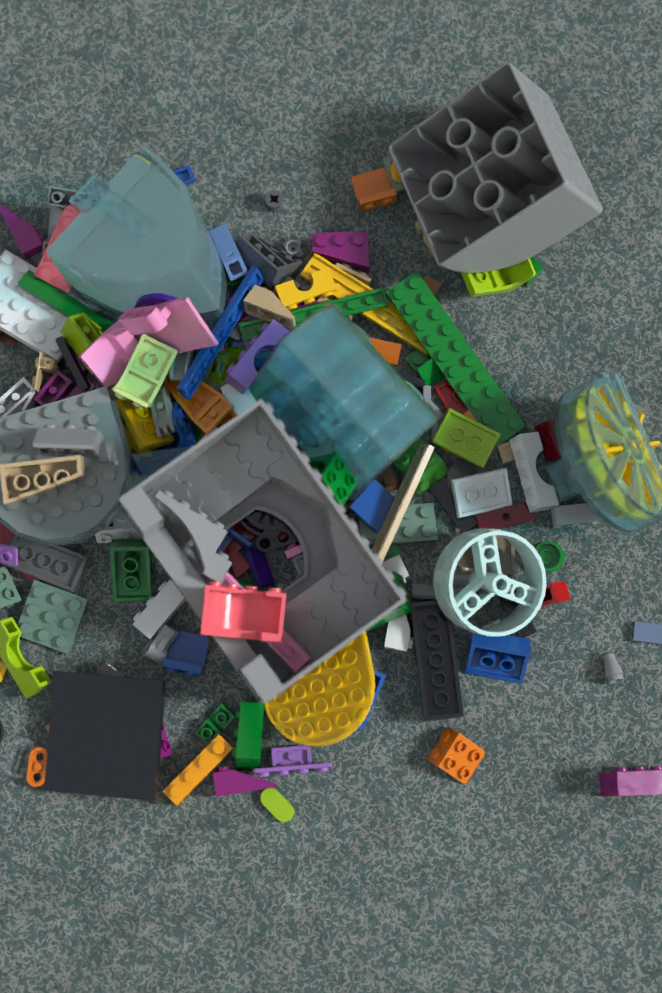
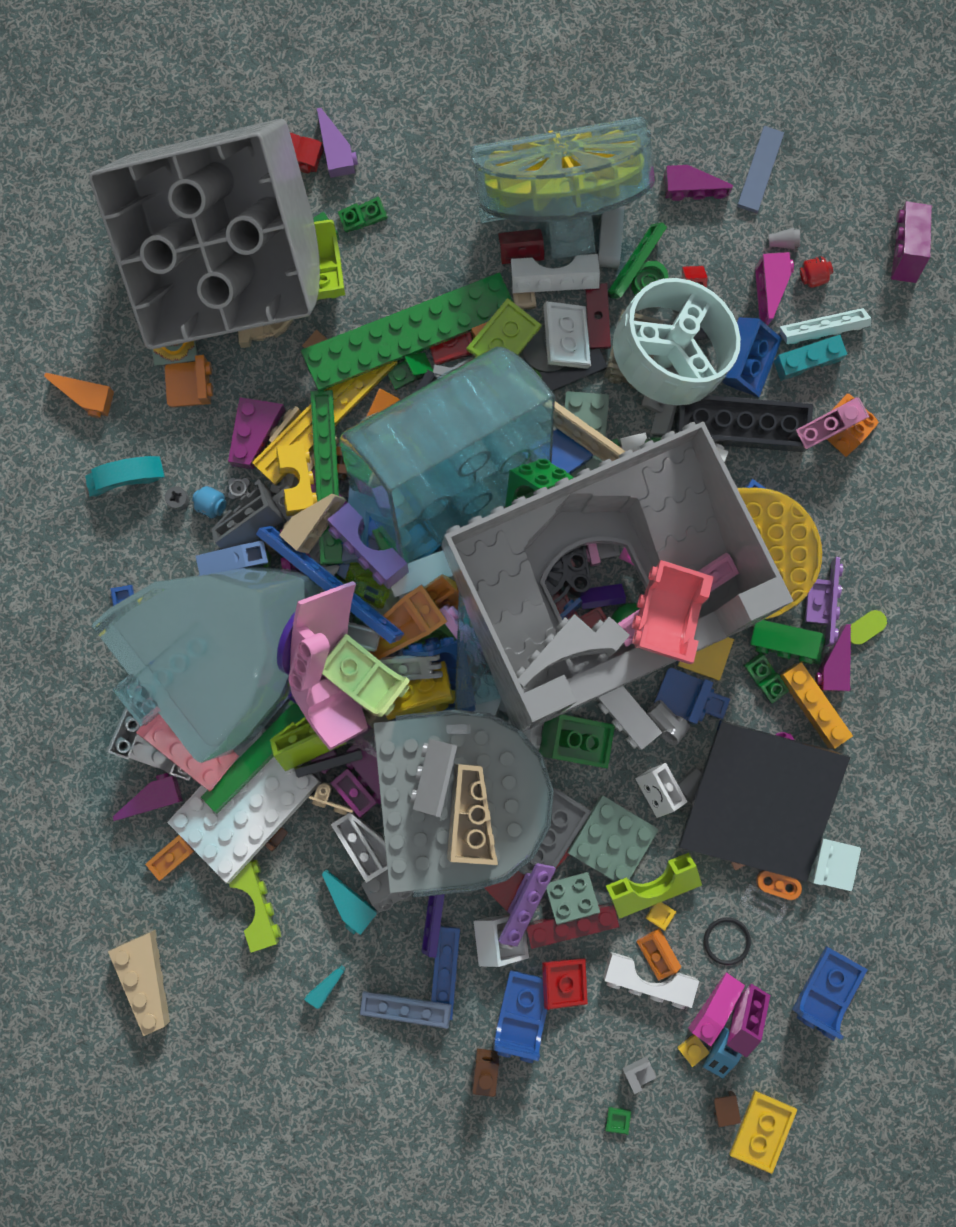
camera: 85 degrees left, 5 degrees up
(63, 812) = (835, 865): none -> light aqua bracket
(100, 648) = (661, 790): none -> white brick
(184, 684) = (717, 706): none -> blue tile
(221, 671) = (710, 660): none -> yellow tile
(276, 227) = (209, 502): none -> dark azure head
(285, 155) = (124, 472): none -> teal arch
(345, 109) = (90, 396): none -> orange slope
(449, 735) = (832, 423): none -> bright pink slope
(508, 709) = (810, 356): none -> teal arch
(540, 718) = (825, 326): none -> light aqua plate
(551, 302) = (362, 215): none -> green slope
(562, 540) = (636, 260): none -> green tile
(569, 662) = (771, 280): none -> dark pink slope
(588, 701) = (816, 271): none -> red head
(593, 238) = (307, 152): none -> red brick
(599, 269) = (337, 149): none -> medium lavender slope
(644, 571) = (687, 181): none -> magenta slope

